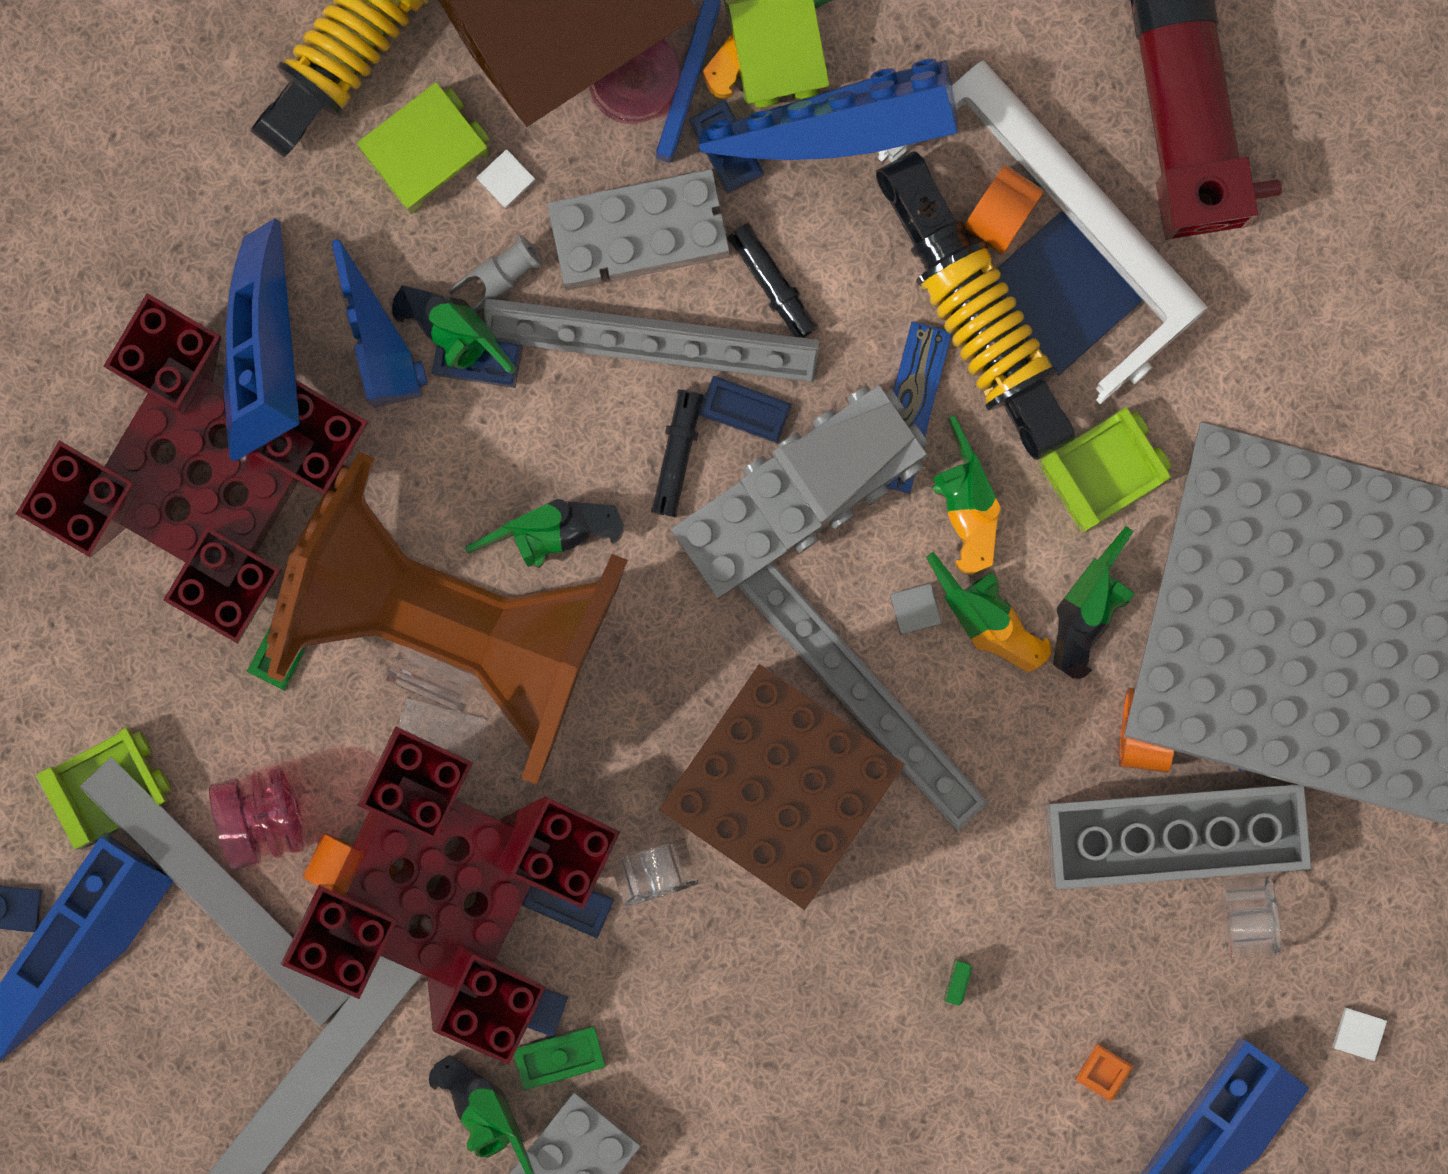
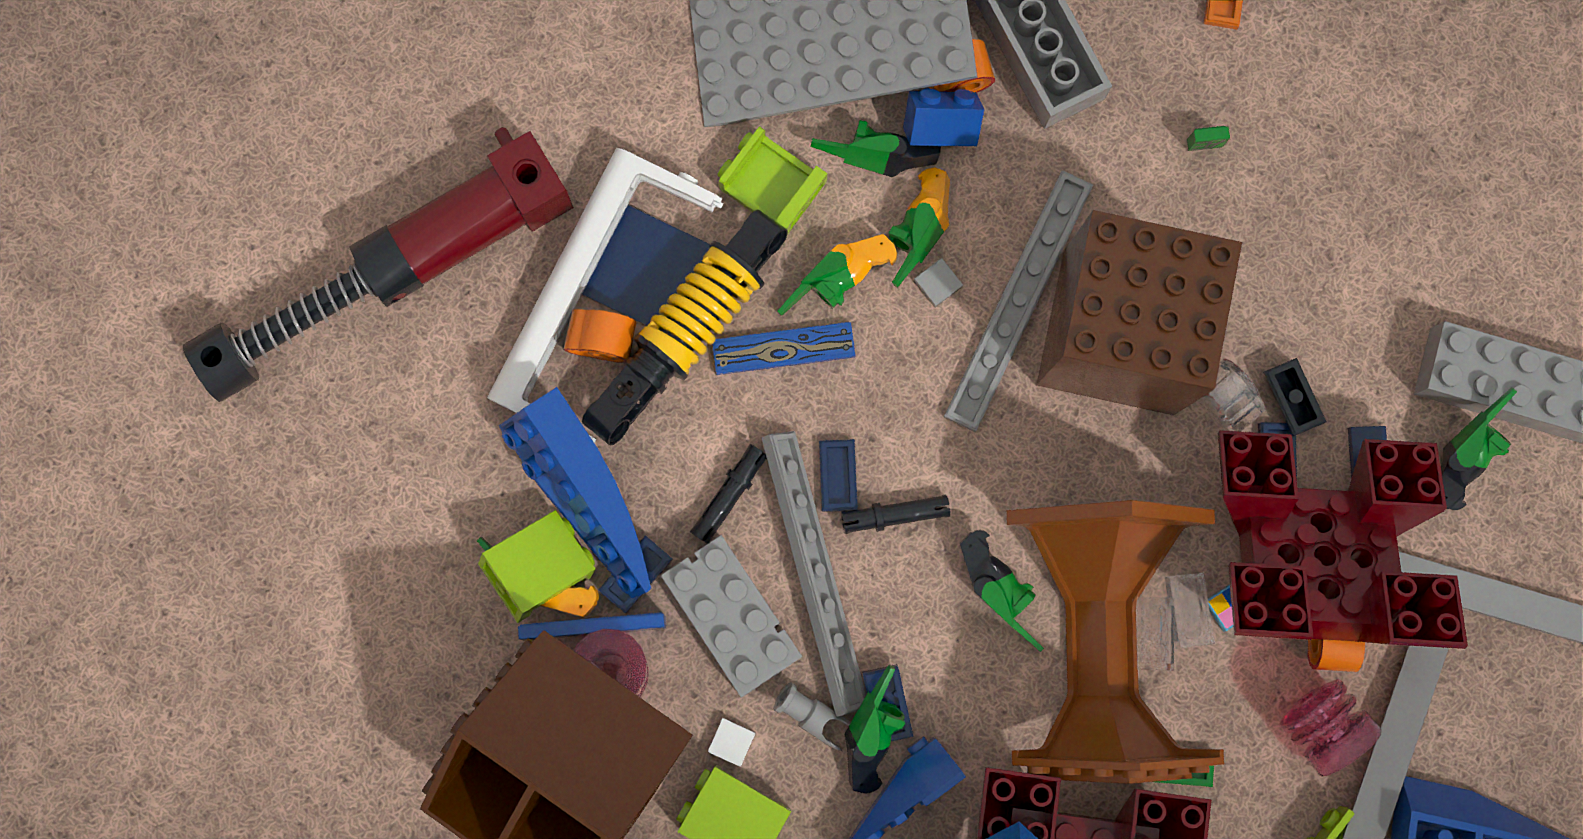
camera: 115 degrees left, 5 degrees down
(559, 1057) = (1398, 412): green plate -> none
(625, 947) = (1294, 397): none -> black slope
(803, 489) = (884, 402): light grey wedge -> none
(1097, 687) = (943, 118): none -> blue brick

